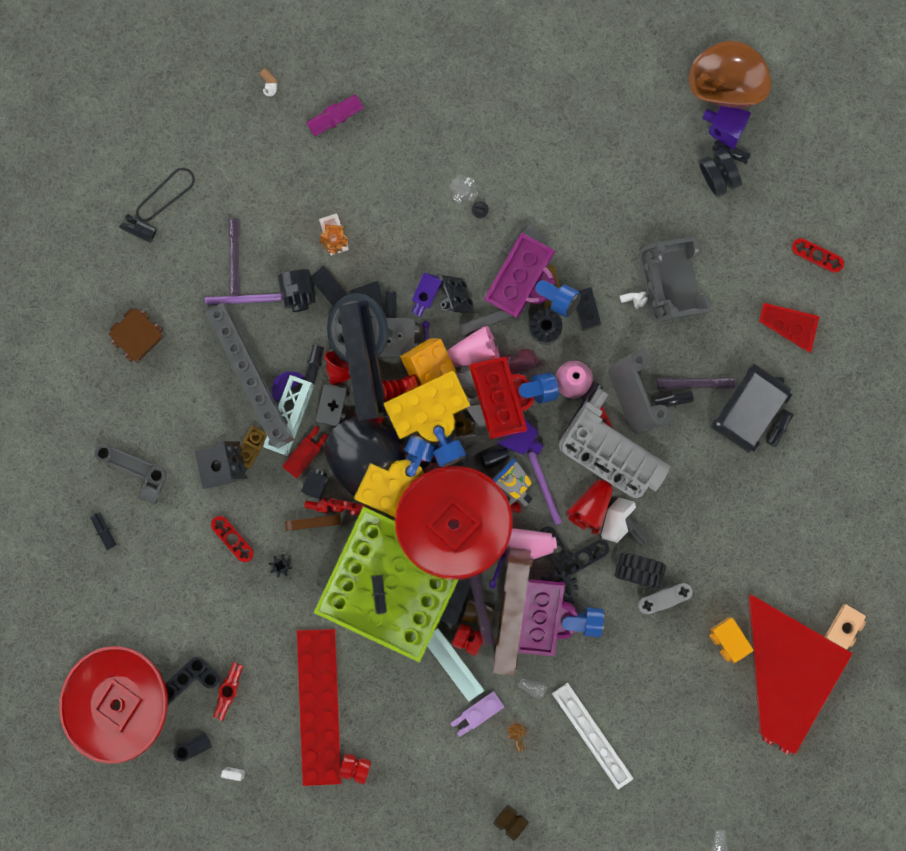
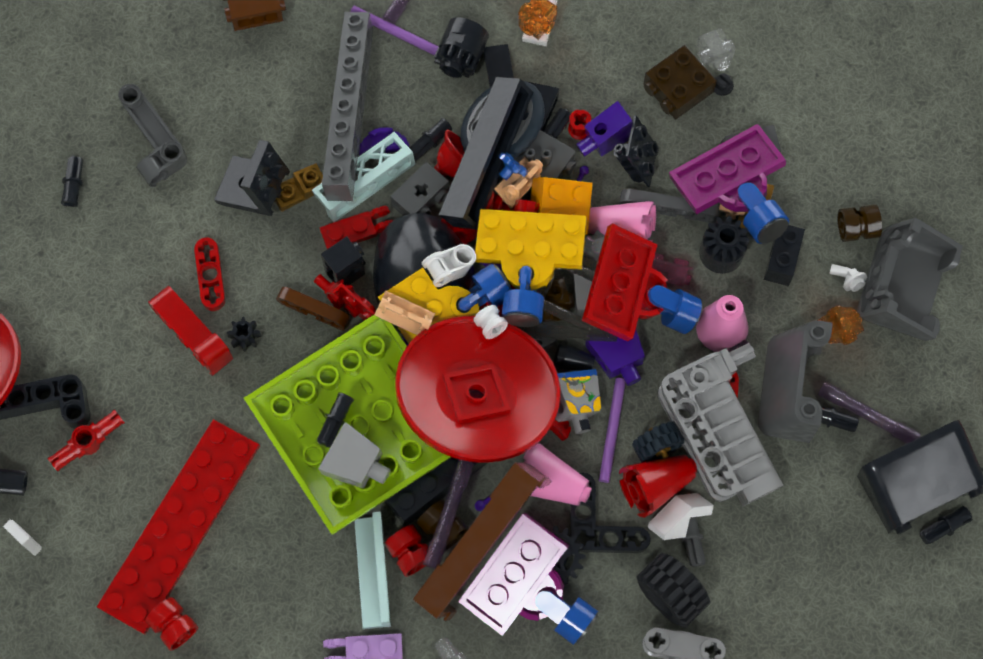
camera: 25 degrees right, 15 degrees down
(245, 583) = (190, 330): none -> red beam
(379, 501) = (404, 313): none -> light nougat hinge
(385, 361) = (511, 166): none -> blue plant
(385, 454) = (449, 264): none -> white piece
(393, 365) = (517, 185): none -> light nougat hinge
(406, 611) = (353, 459): none -> light grey torso
(408, 300) = (578, 117): none -> red bush
(435, 475) = (490, 322): none -> white wheel
(452, 228) = (679, 82): none -> dark brown brick
(578, 483) = (658, 442): none -> black wheel
(622, 258) = (864, 223): none -> dark brown wheel
(648, 336) = (845, 324): none -> clear orange brick

